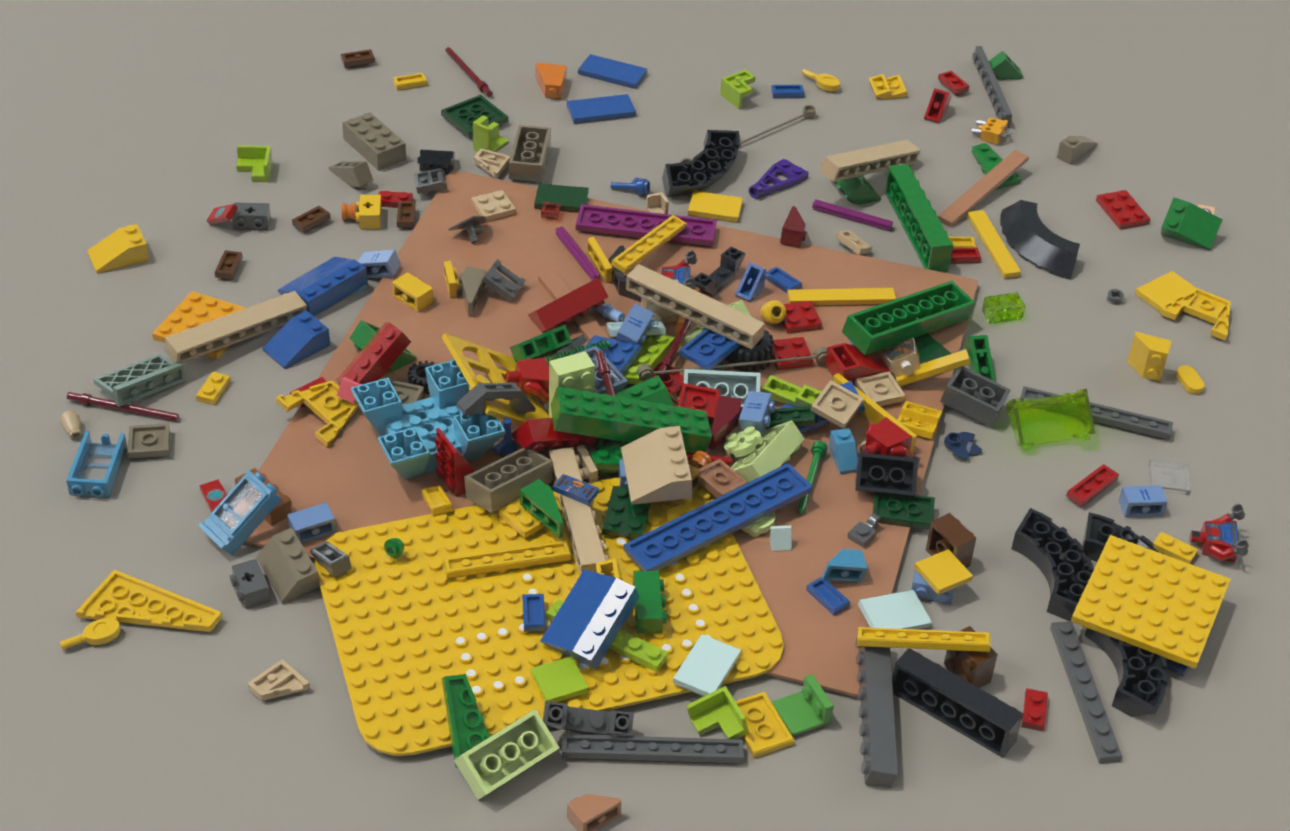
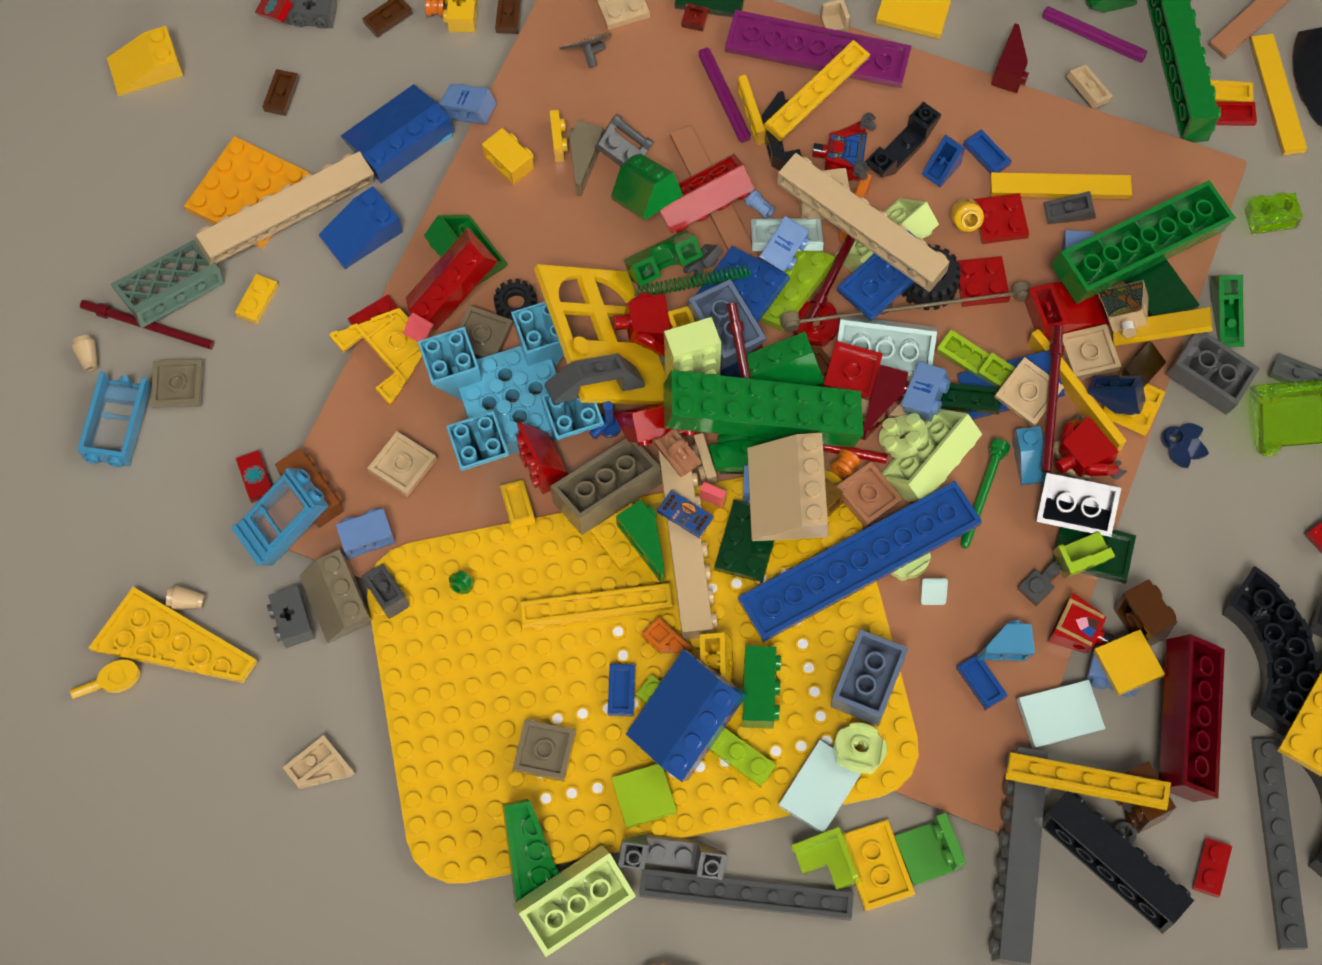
camera: 10 degrees right, 25 degrees up
(158, 576) = (184, 598): none -> tan cone
(339, 479) = (402, 464): none -> tan plate
(472, 653) = (544, 750): none -> dark tan plate
(523, 298) = (645, 186): none -> green slope
(563, 576) = (664, 638): none -> orange tile
(565, 447) = (677, 452): none -> nougat hips
(598, 481) = (713, 494): none -> coral tile
(735, 636) = (857, 761): none -> yellowish green plate
(736, 588) = (869, 677): none -> sand blue brick
(849, 307) = (1070, 209): none -> dark grey slope
(854, 375) = (1056, 351): none -> dark red bar
(894, 508) = (1082, 554): none -> lime panel
(899, 554) = (1079, 626): none -> red torso
(907, 407) = (1119, 393): none -> dark blue slope
(921, 395) = (1145, 364): none -> dark brown slope
(1000, 604) = (1192, 717): none -> dark red brick

